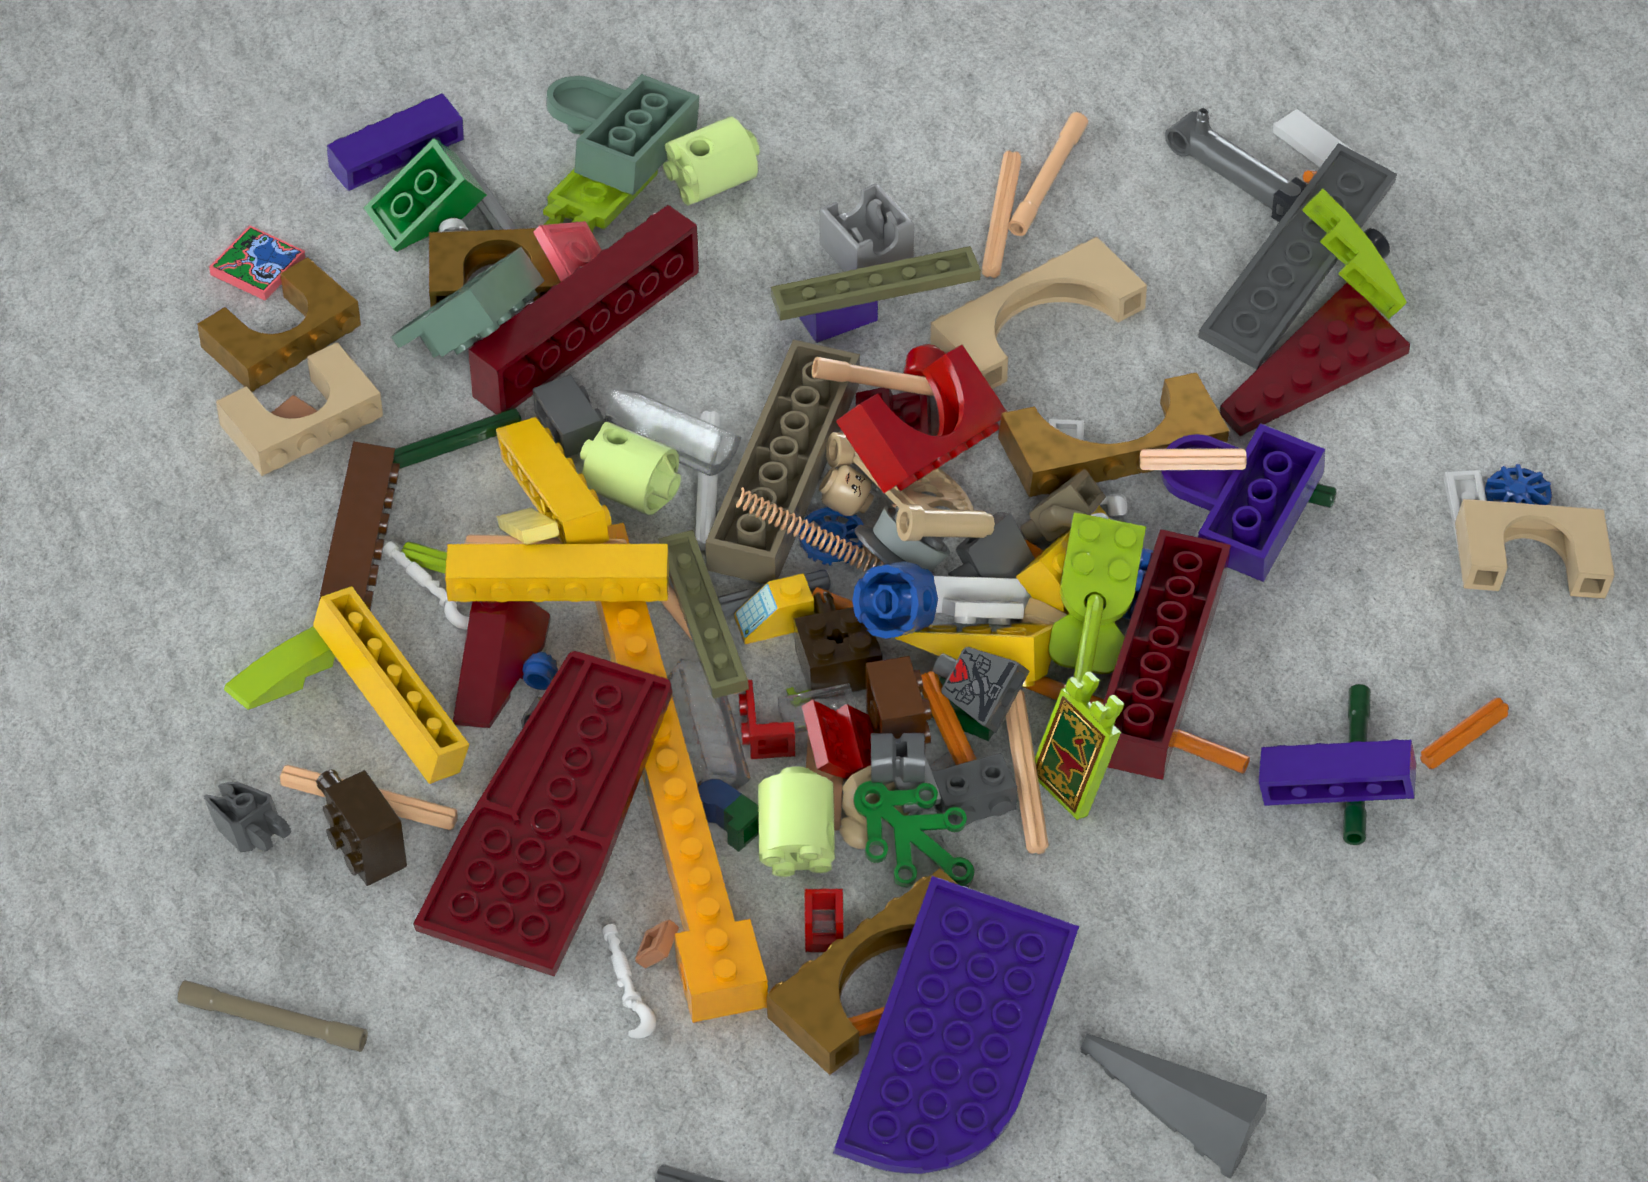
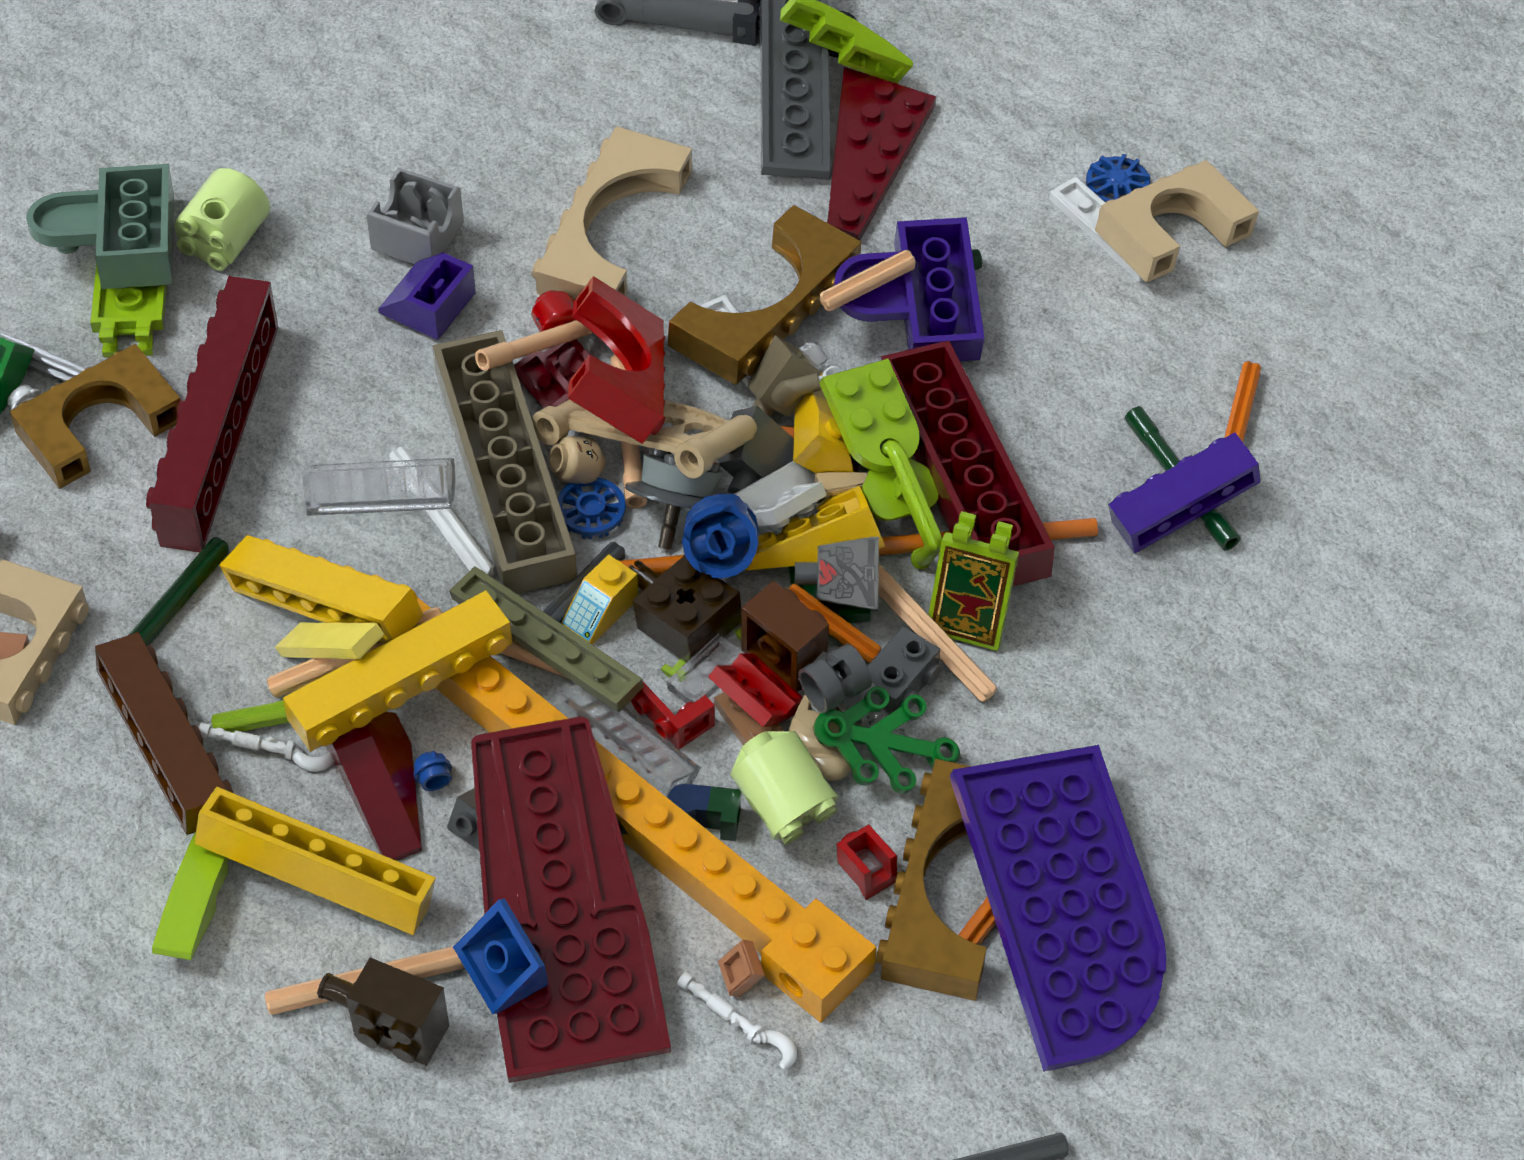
camera: 35 degrees left, 5 degrees up
(246, 816) = (270, 1065): dark grey hinge -> none
(468, 828) = (501, 959): none -> blue slope
(475, 307) = (118, 464): sand green brick -> none
(567, 246) = (161, 363): coral tile -> none
(567, 413) = (272, 515): dark grey brick -> none
(631, 469) = (376, 536): yellowish green cylinder -> none
(807, 526) = (570, 506): light nougat piece -> none
(875, 283) = (469, 259): olive plate -> none
(1001, 214) = (508, 146): light nougat axle -> none
(1028, 208) = (528, 130): light nougat piece -> none
(1203, 1108) = (1312, 847): dark grey wedge -> none

